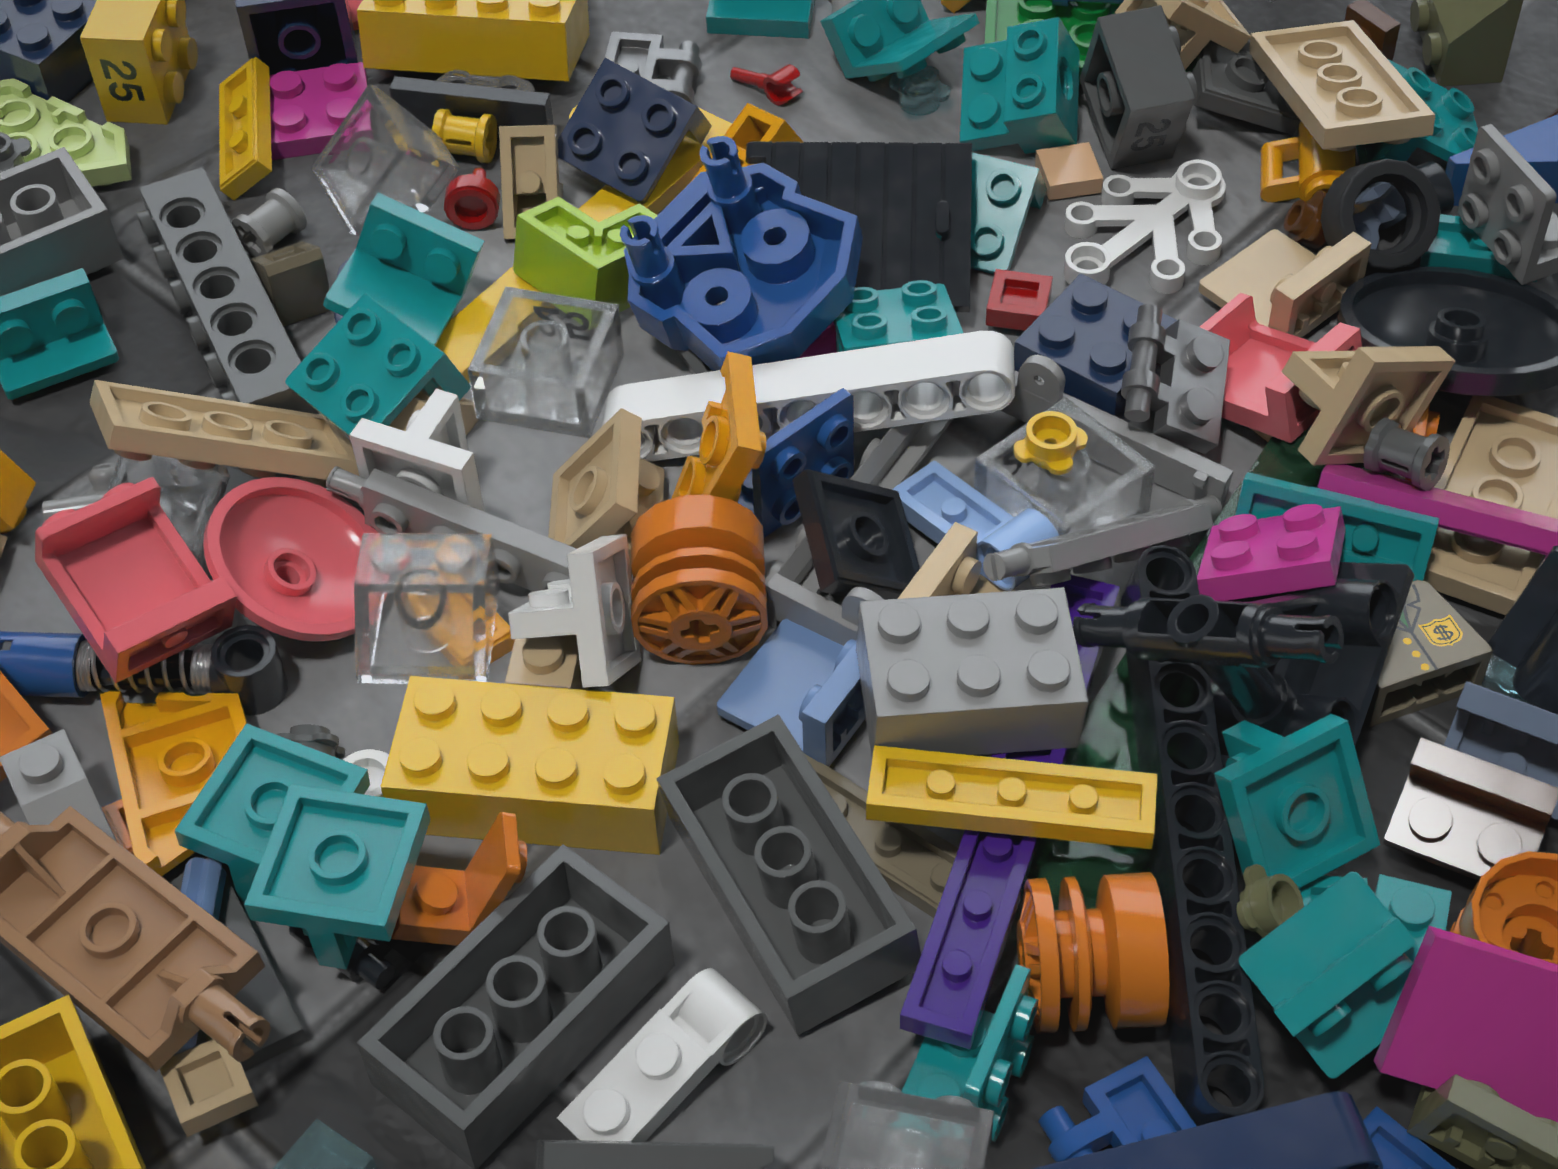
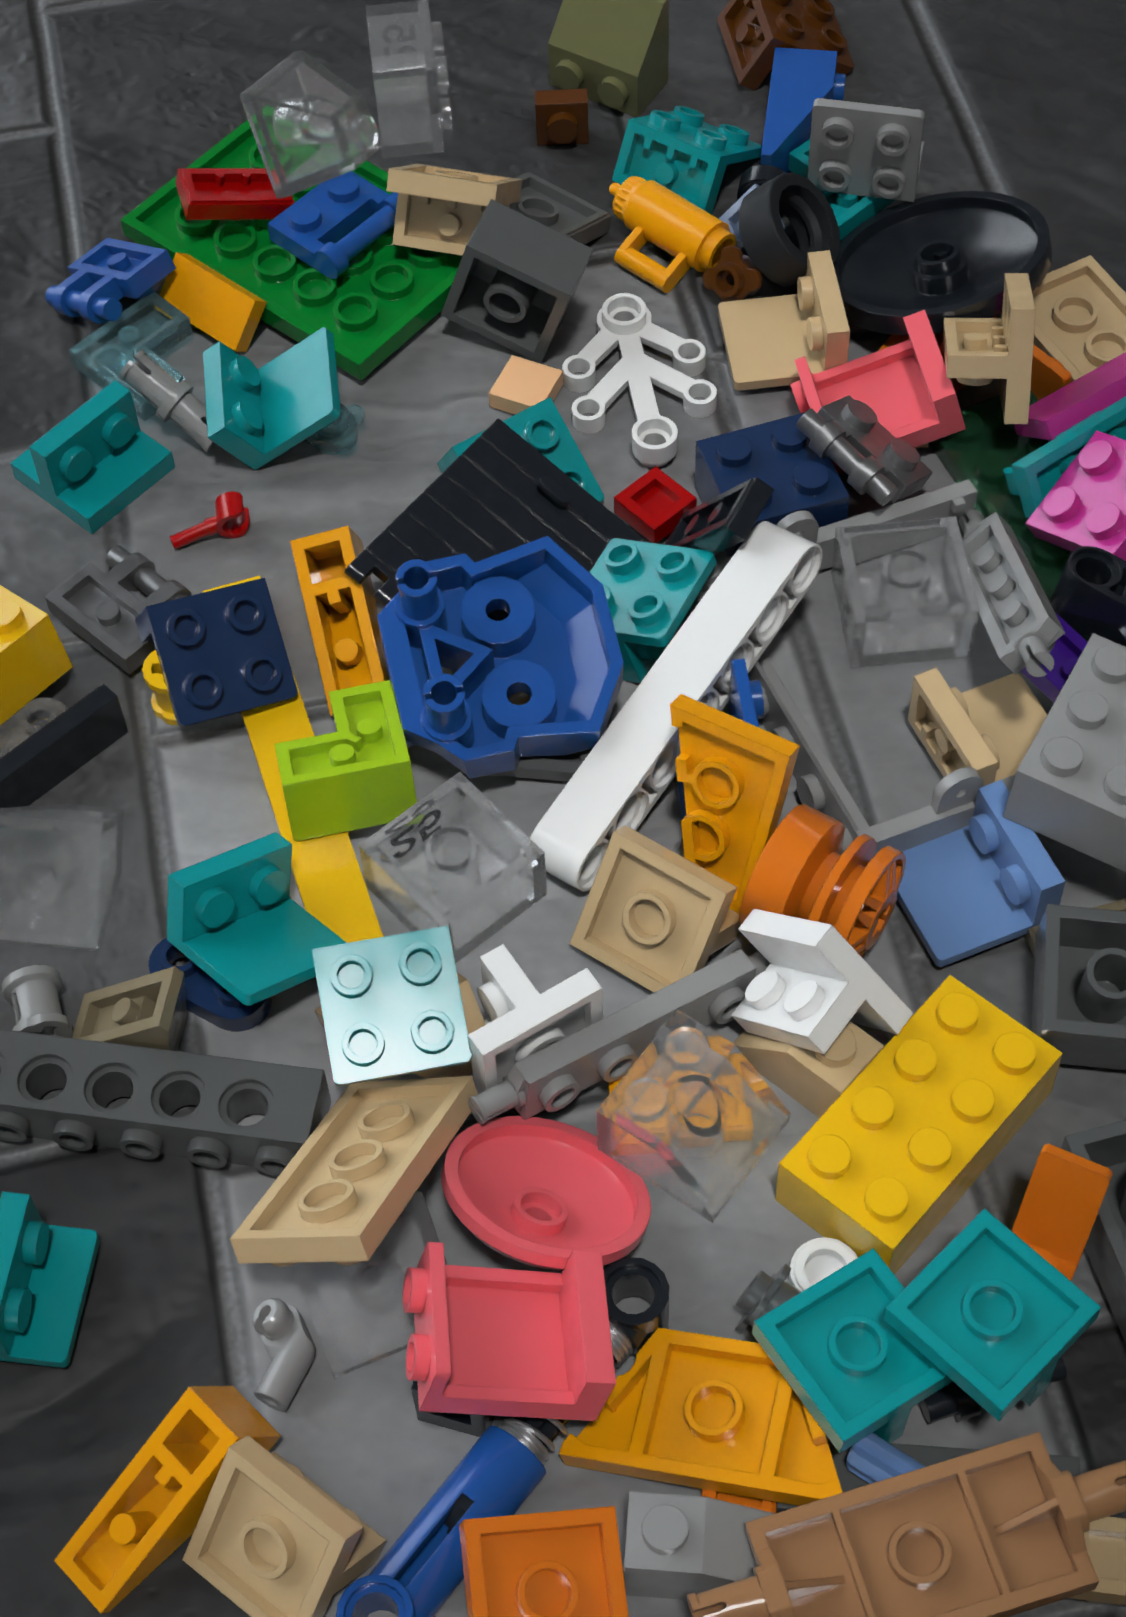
camera: 55 degrees left, 5 degrees up
(467, 135) = (71, 781): yellow bush -> none
(472, 201) = (165, 823): red tile -> none
(527, 170) = (196, 765): tan slope -> none
(855, 535) = (863, 755): black plate -> none
(939, 498) = (884, 675): light blue plate -> none
(990, 311) = (722, 519): none -> black tile
(1022, 89) = (444, 337): teal brick -> none
(1051, 442) = (895, 550): yellow plate -> none
(1341, 85) = (636, 161): tan plate -> none
(1406, 454) = (1065, 363): dark grey bush -> none

